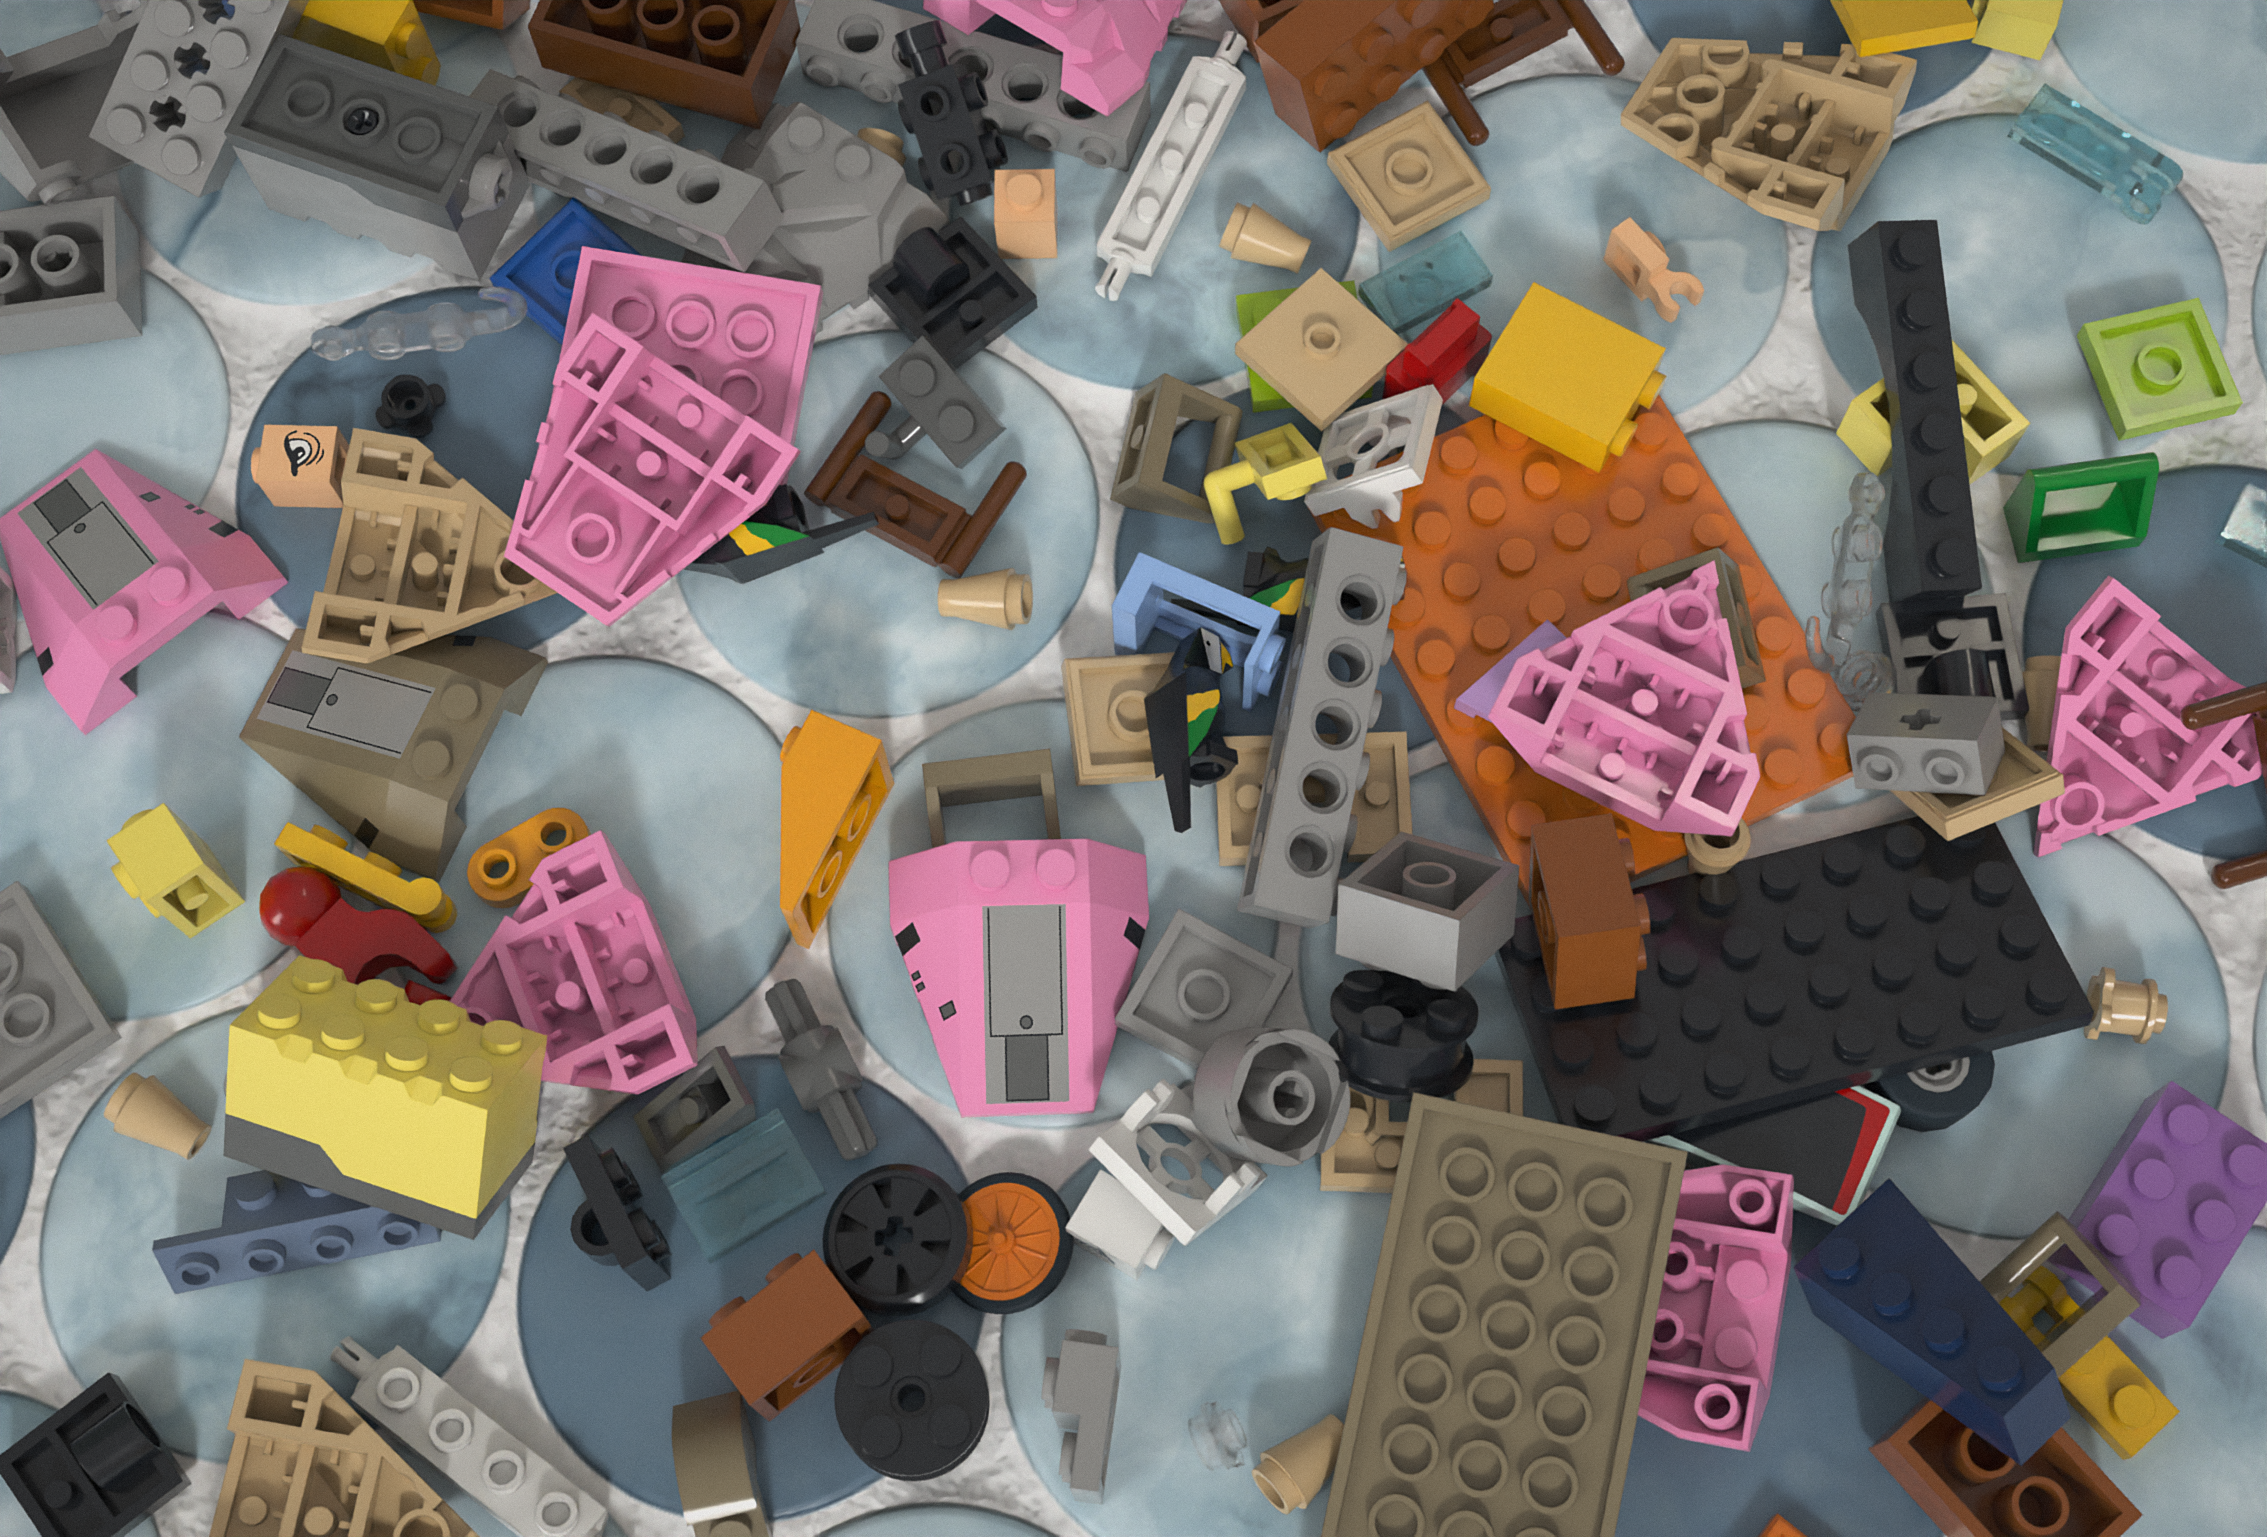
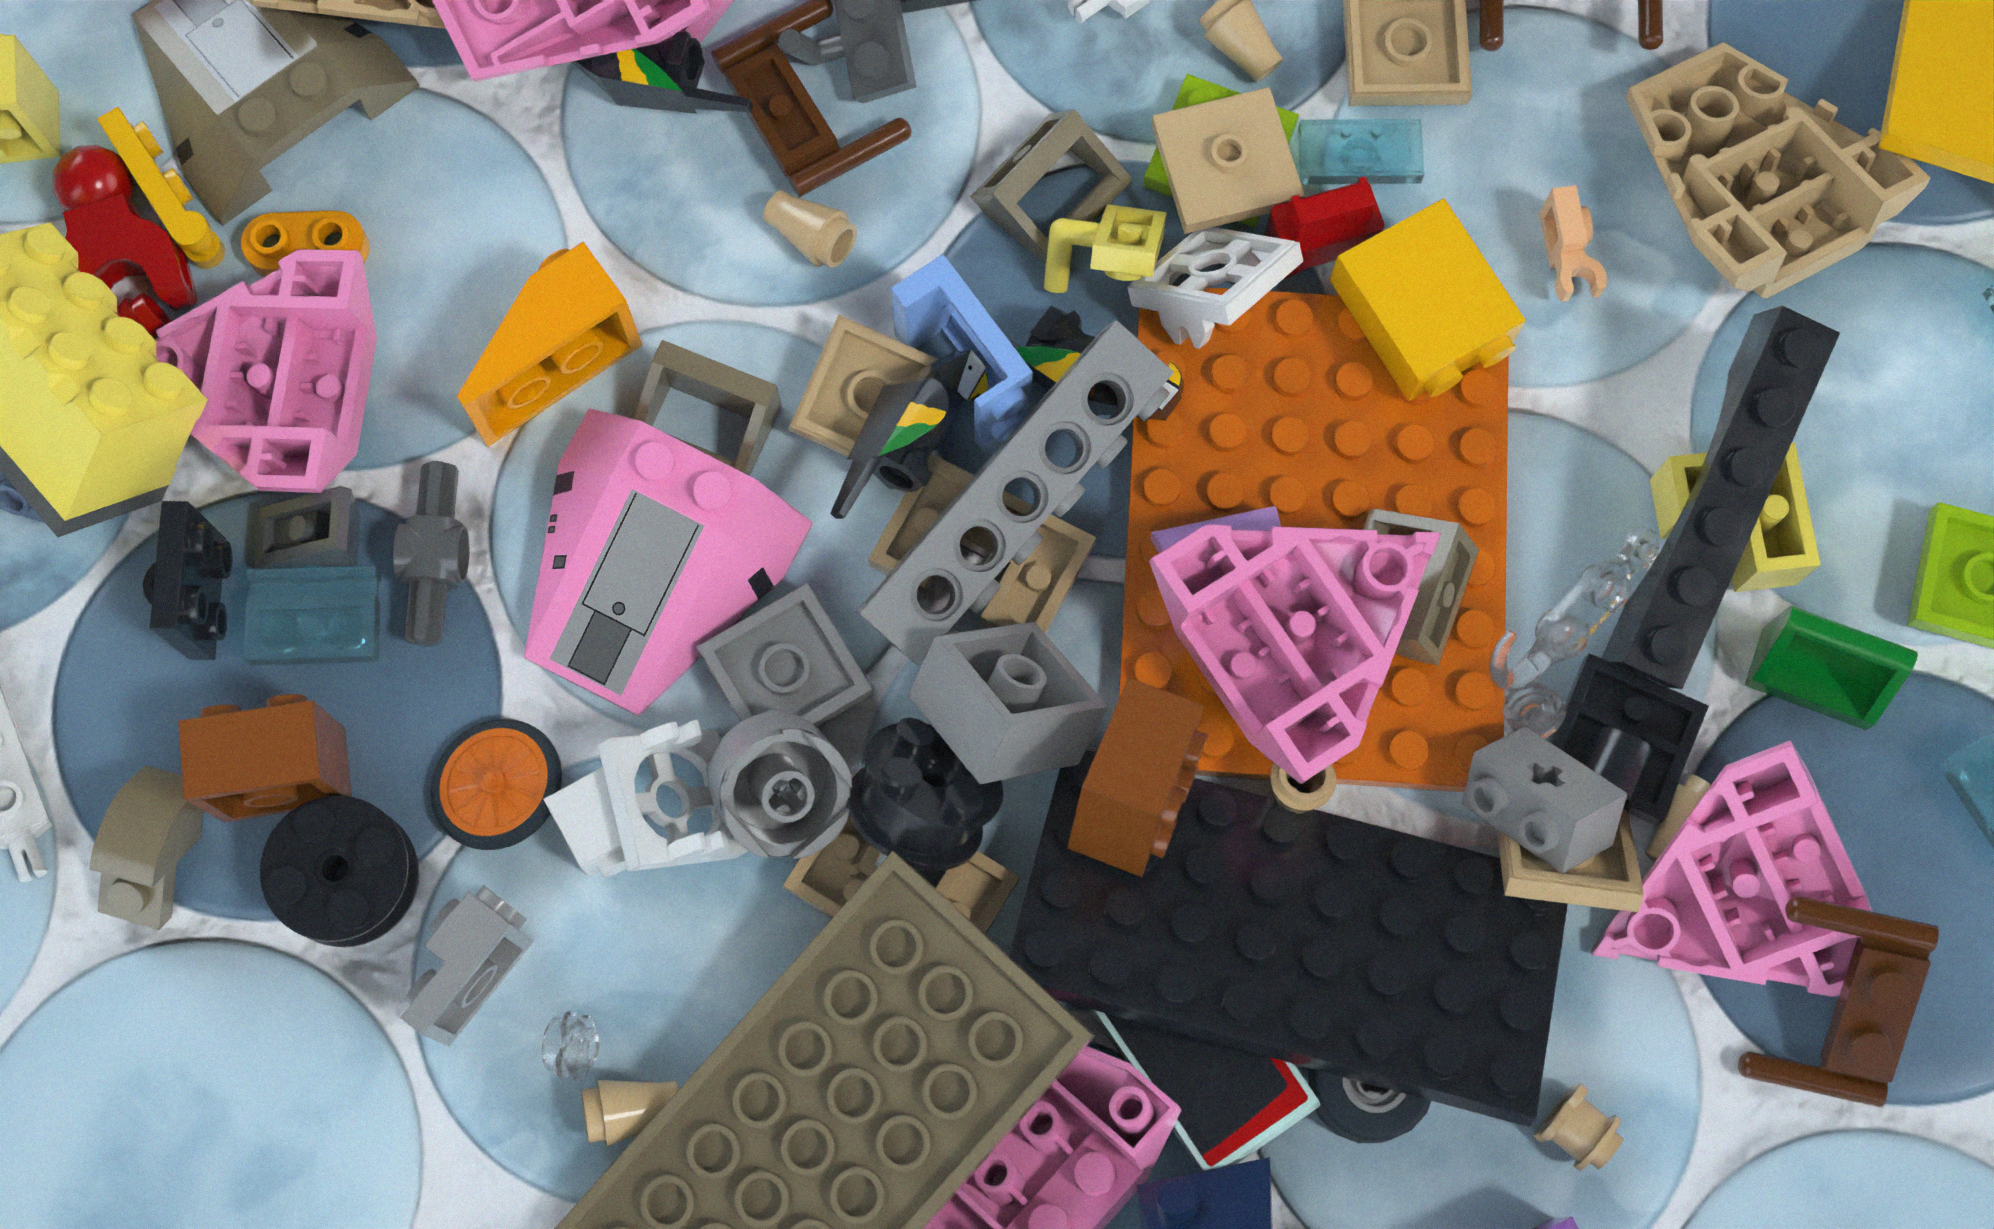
camera: 25 degrees right, 5 degrees up
(925, 1268) = (405, 767): black wheel -> none

